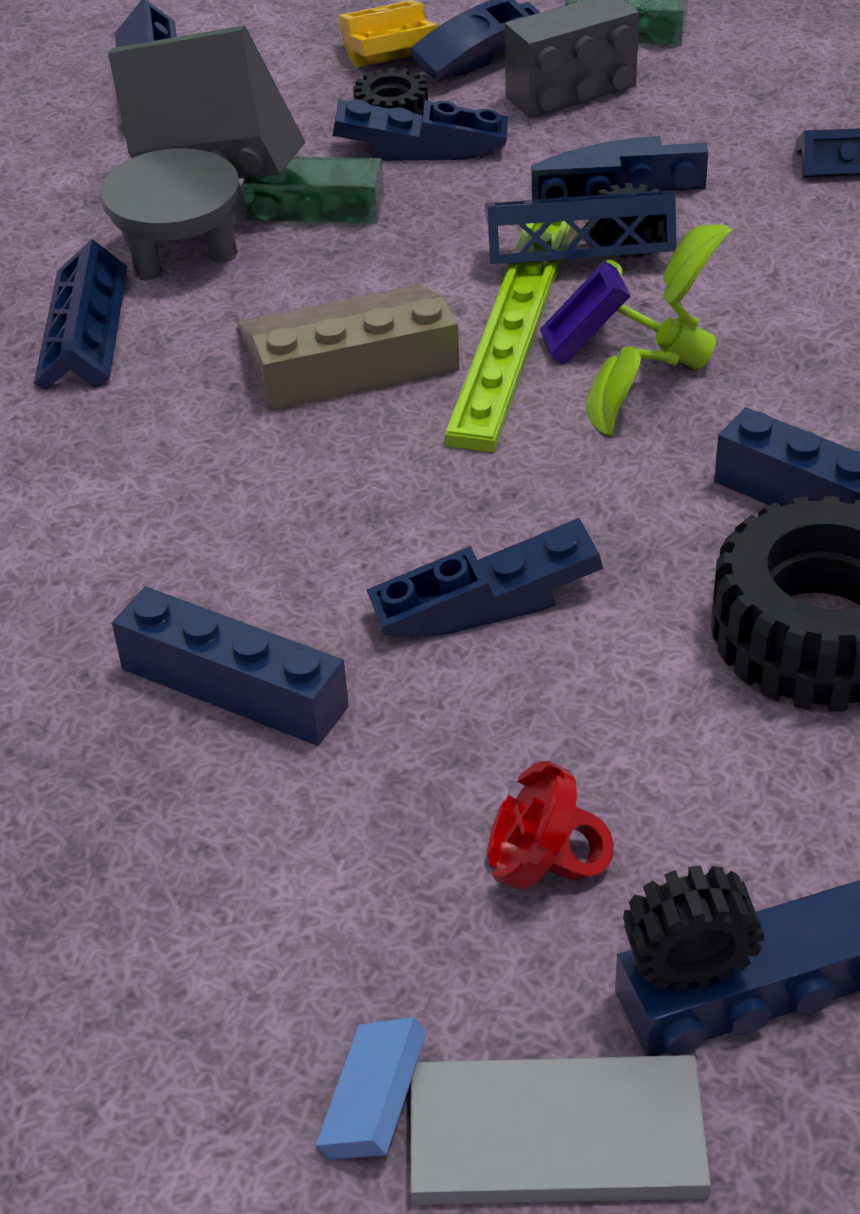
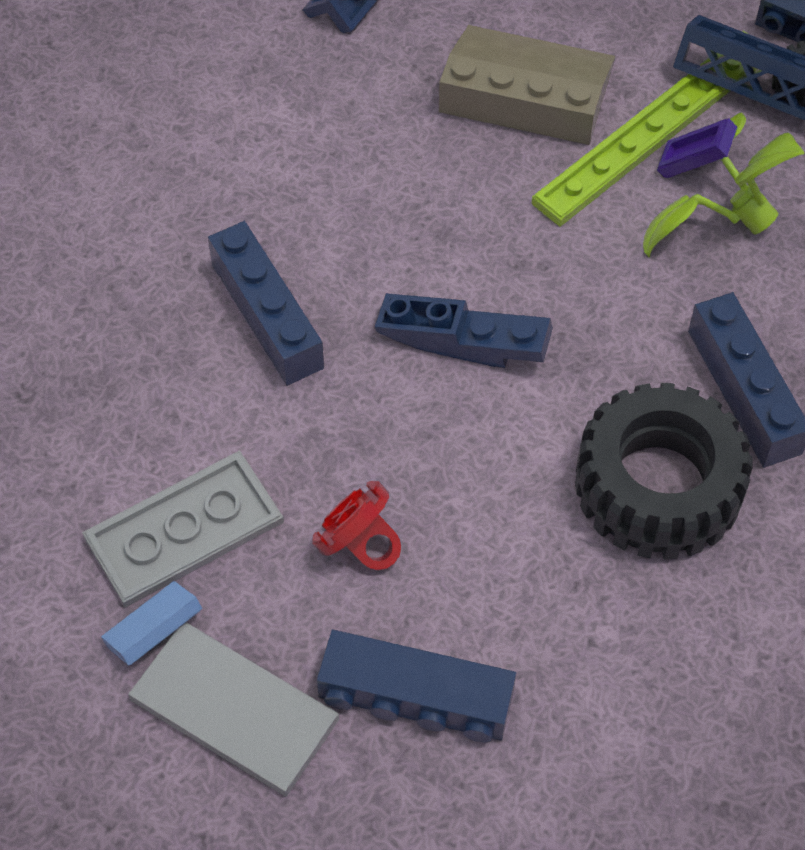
camera: 30 degrees right, 15 degrees up
(315, 966) = (182, 528): none -> light grey tile
(693, 928) = (365, 644): black tyre -> none

